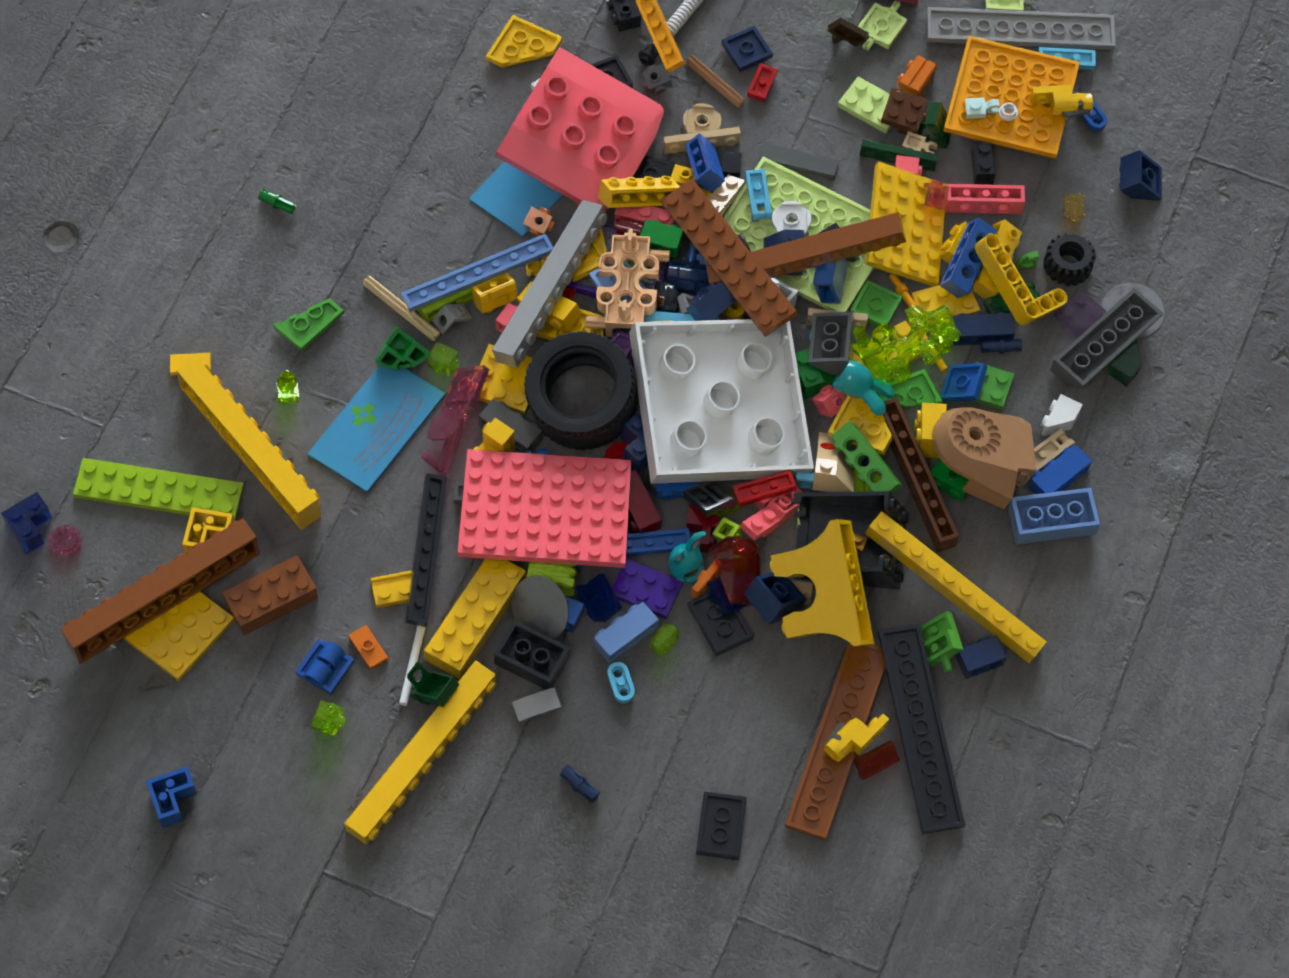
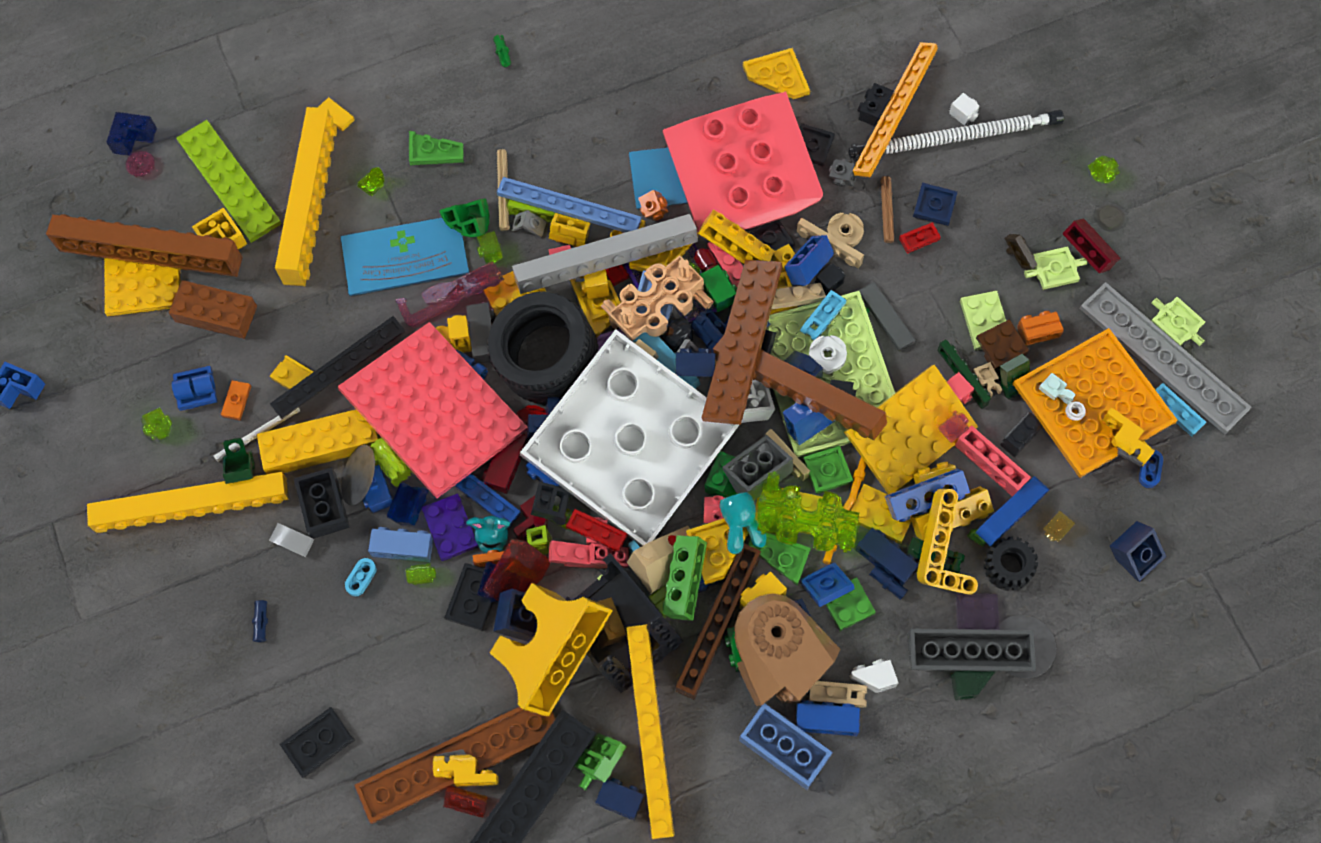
camera: 50 degrees right, 5 degrees up
(1035, 222) = (1012, 511): none -> blue beam

